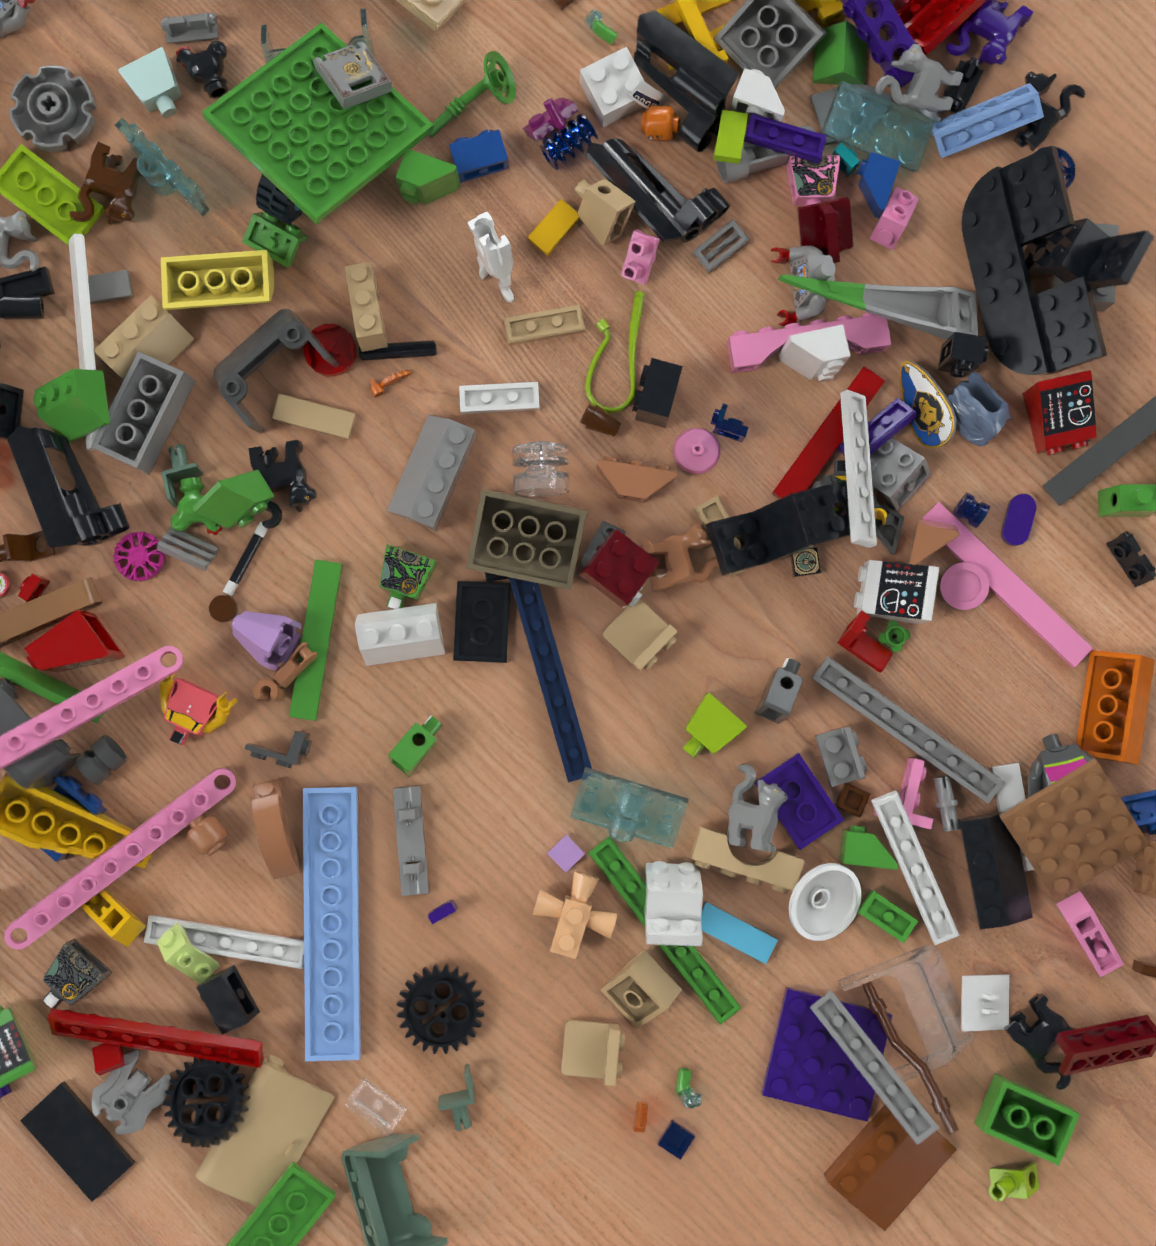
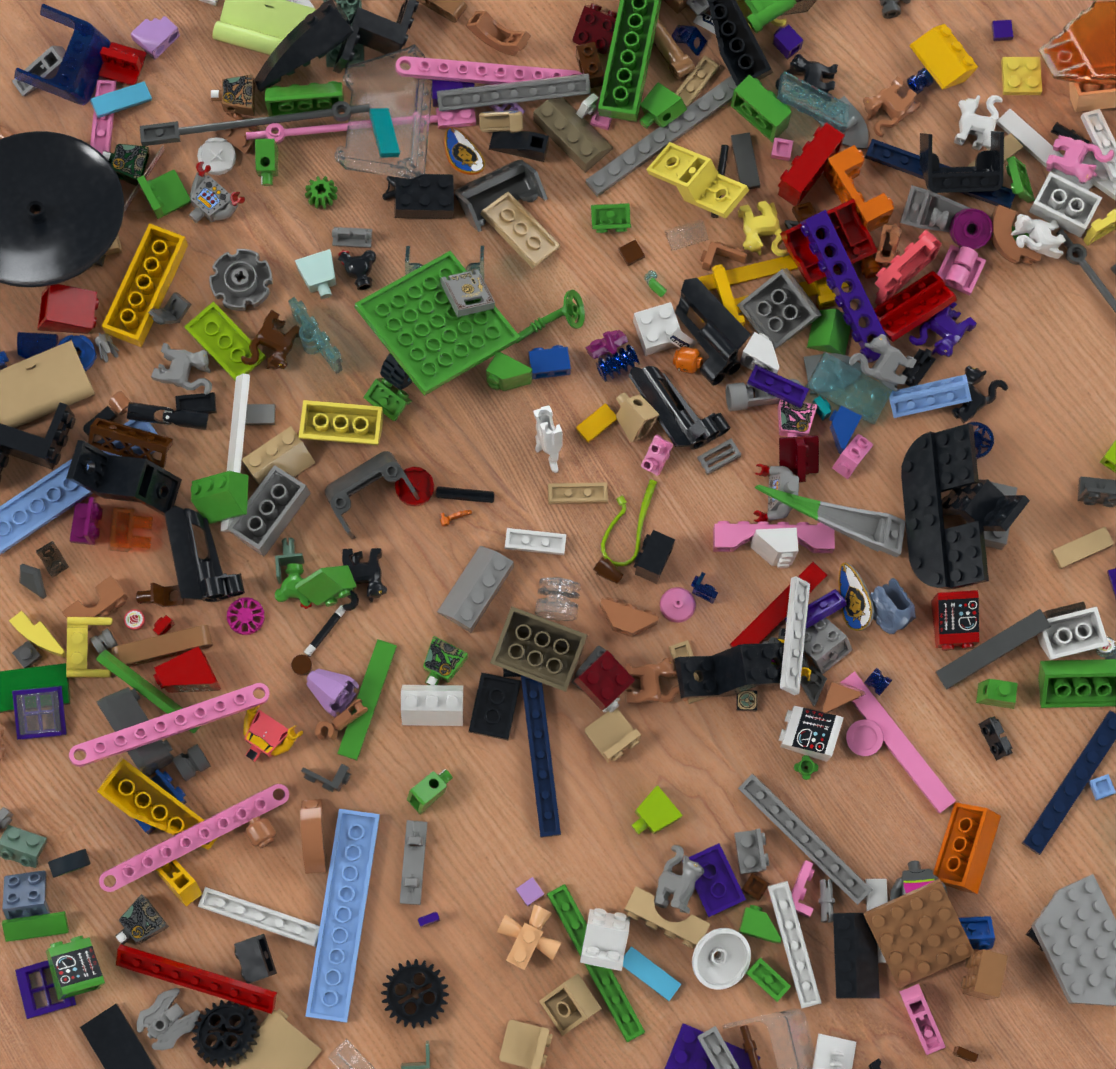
camera: 10 degrees right, 10 degrees down
(107, 1058) = (155, 989): red tile -> none
(184, 956) = (229, 920): yellowish green bracket -> none
(190, 546) = (284, 613): light grey tile -> none
(314, 416) = (394, 533): tan tile -> none
(365, 306) = (447, 459): tan arch -> none
(628, 808) = (583, 863): clear light blue plate -> none
(730, 136) = (737, 379): lime tile -> none
(778, 701) = (711, 794): dark grey torso -> none
(862, 646) = (780, 770): red bracket -> none
(962, 354) = (887, 564): black brick -> none
(1018, 520) = (913, 695): dark purple tile -> none

